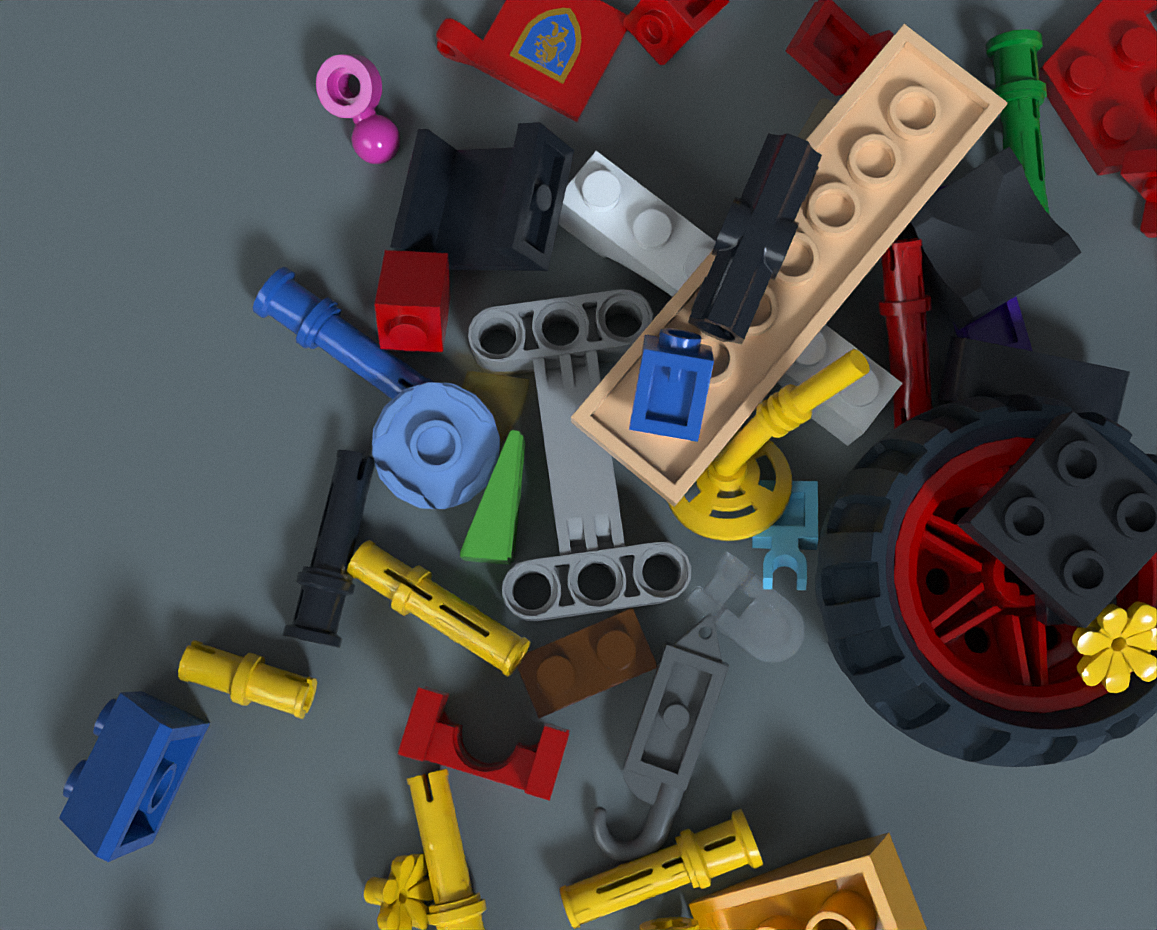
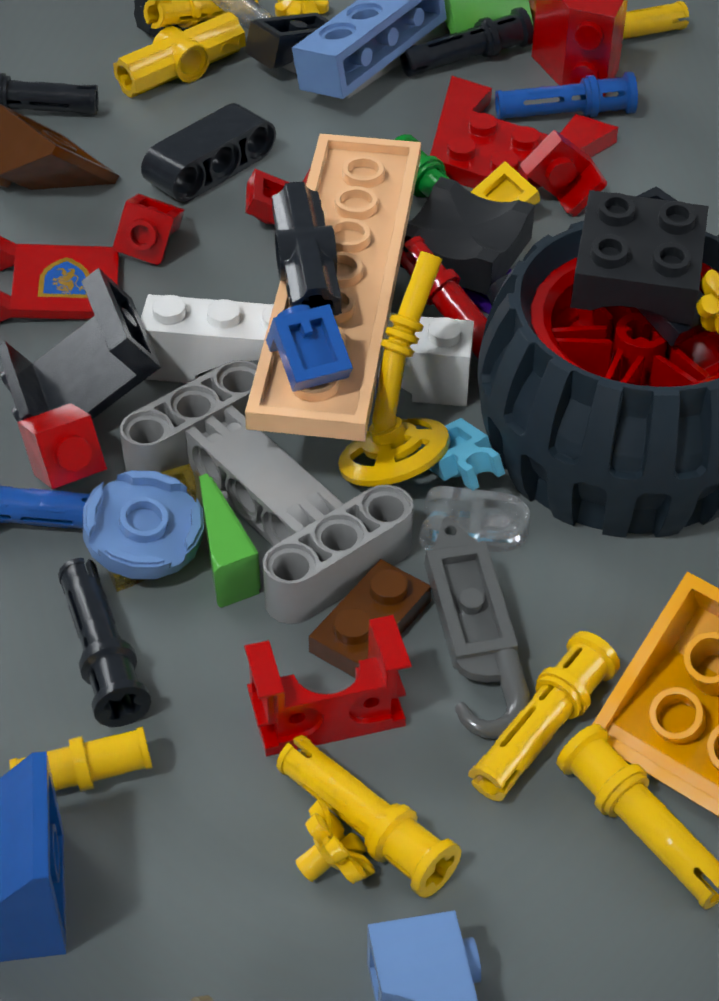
camera: 30 degrees left, 35 degrees down
(416, 593) = (207, 629): yellow pin -> none
(1081, 180) = (506, 186): none -> yellow plate

